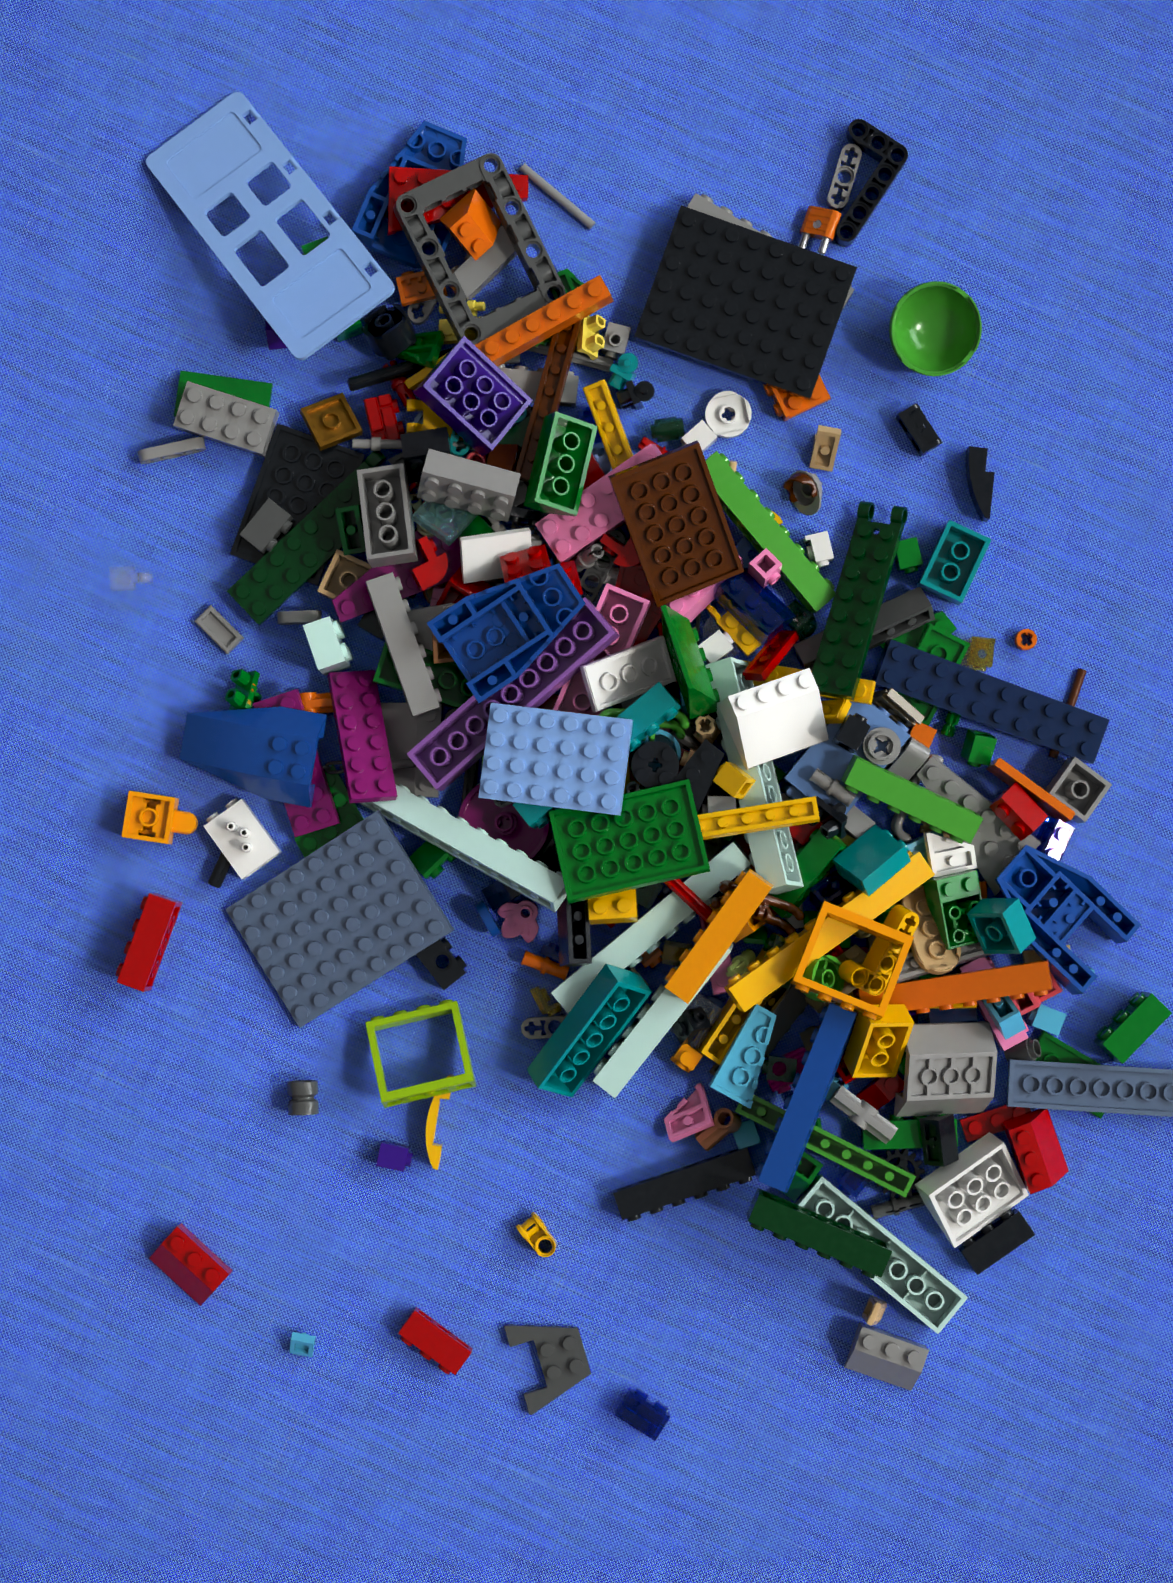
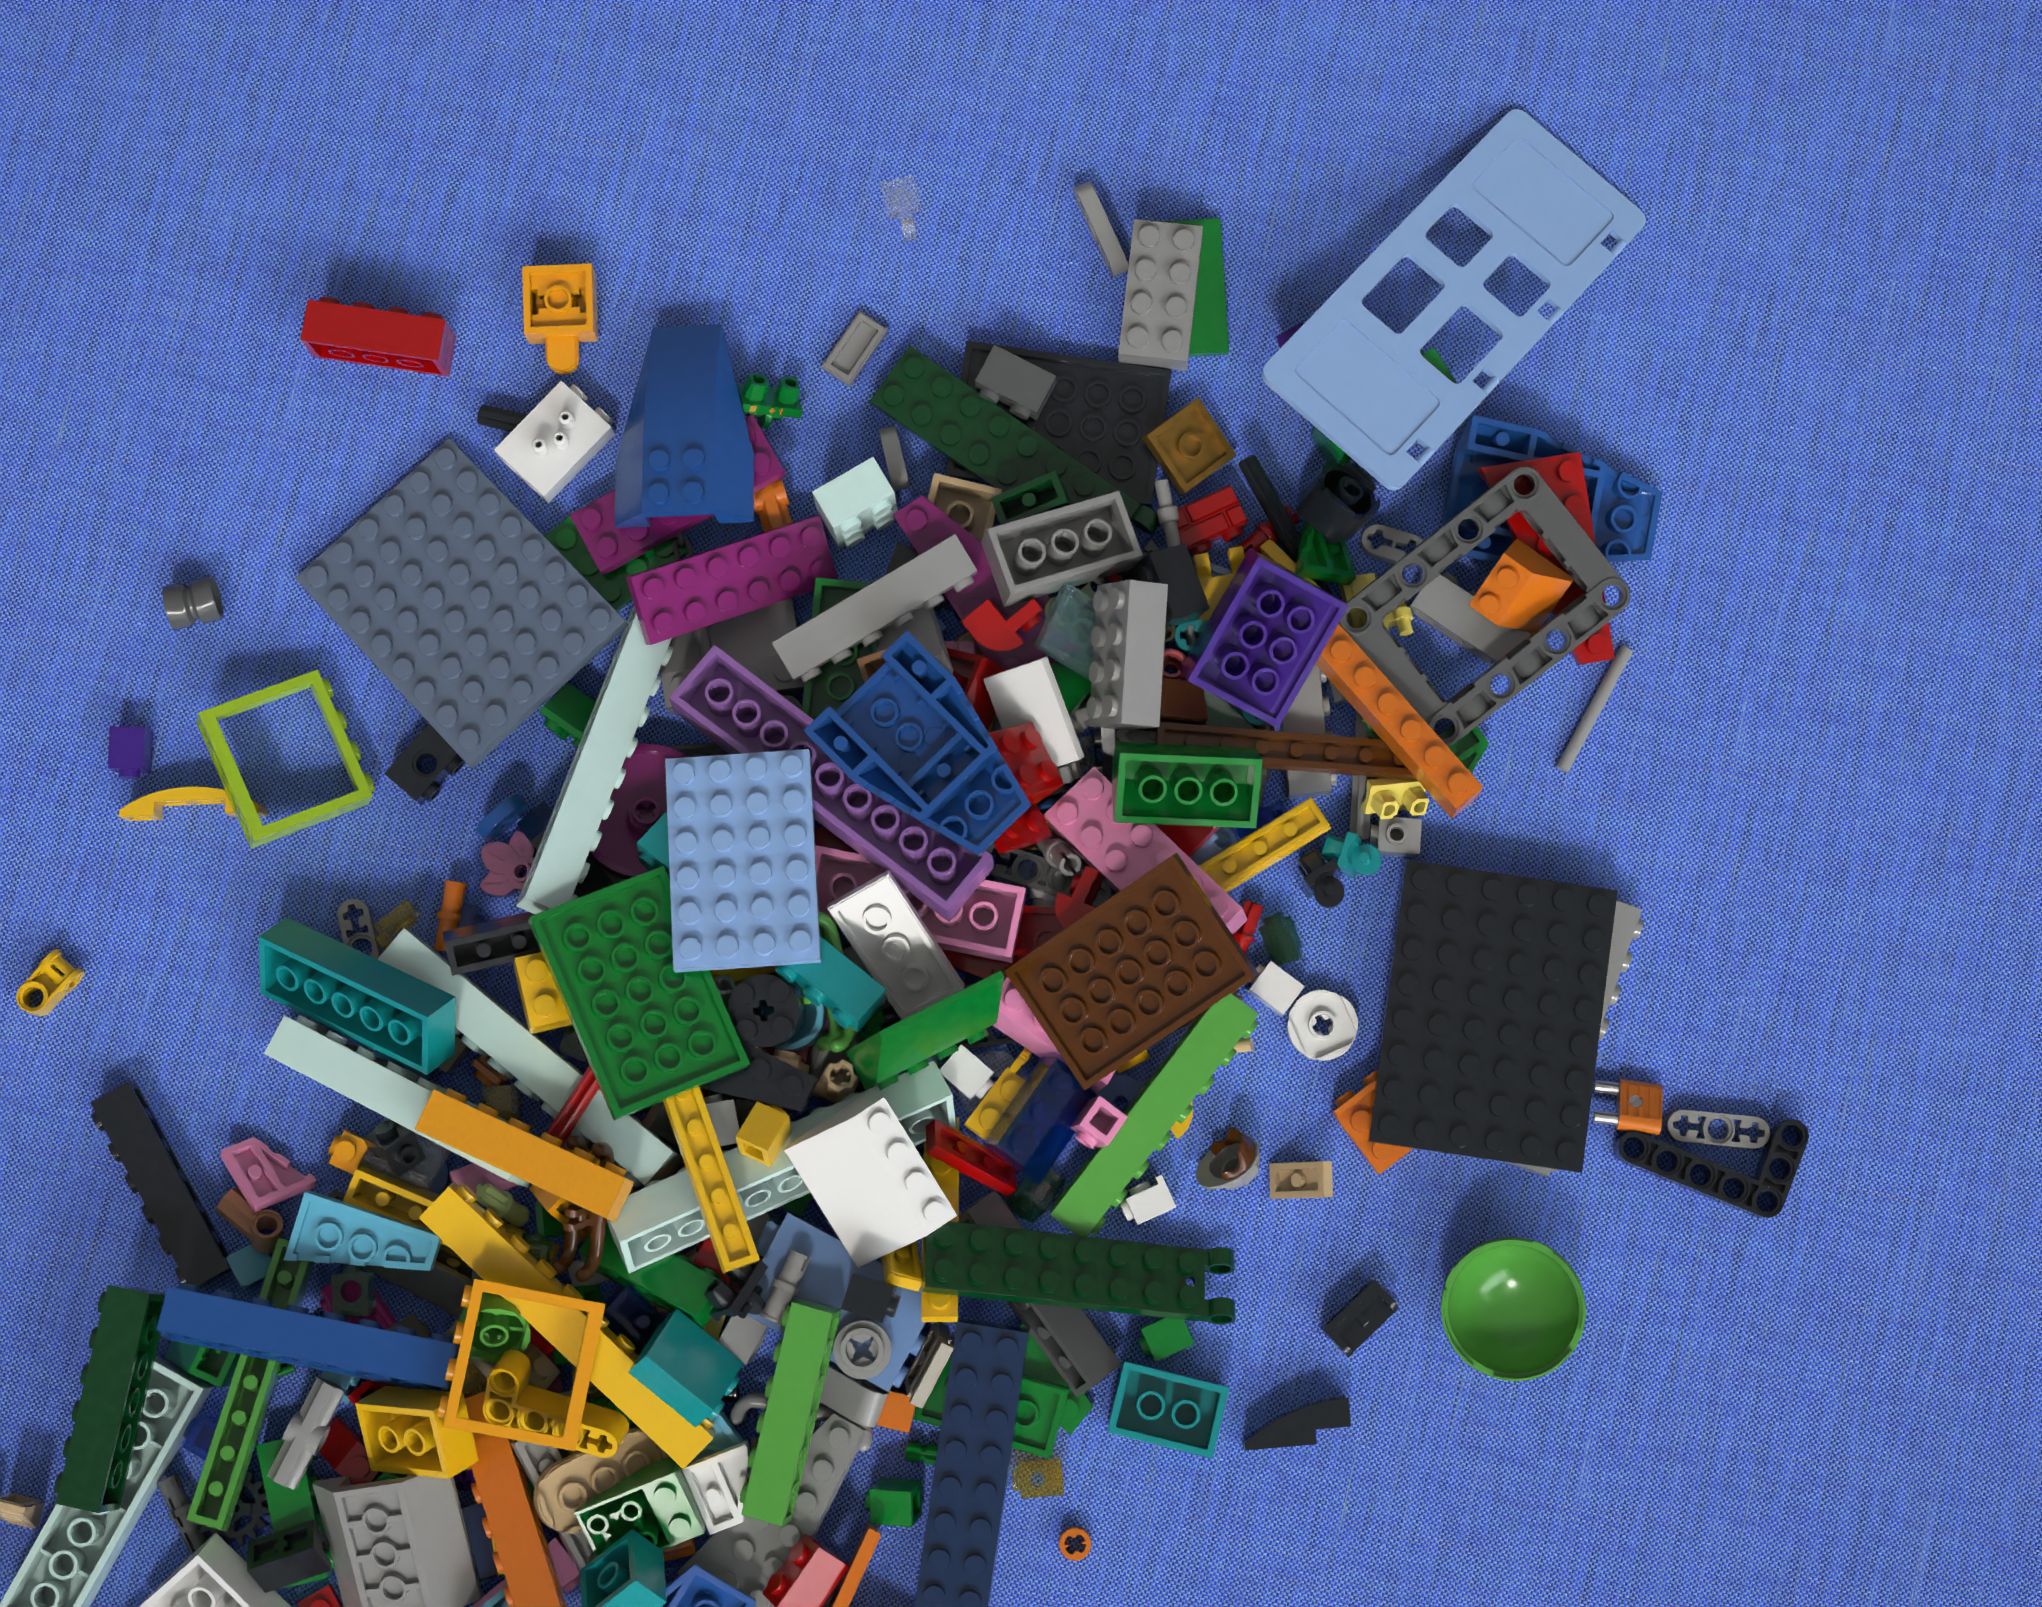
camera: 80 degrees right, 5 degrees down
(415, 288) = (1409, 526): orange bracket -> none

